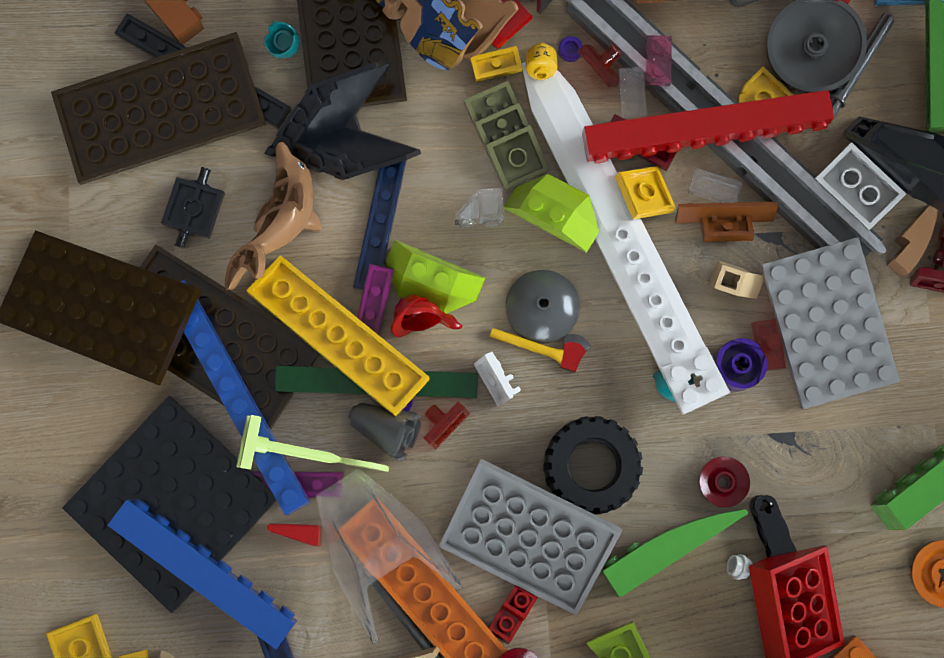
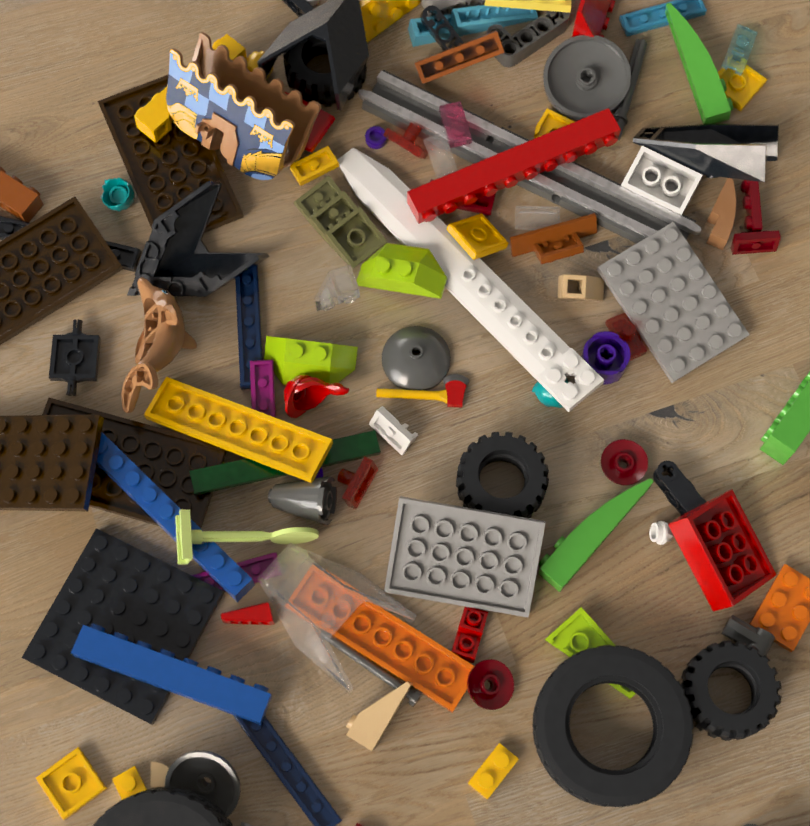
camera: 15 degrees left, 10 degrees down
(541, 61) = (353, 152): yellow head -> none

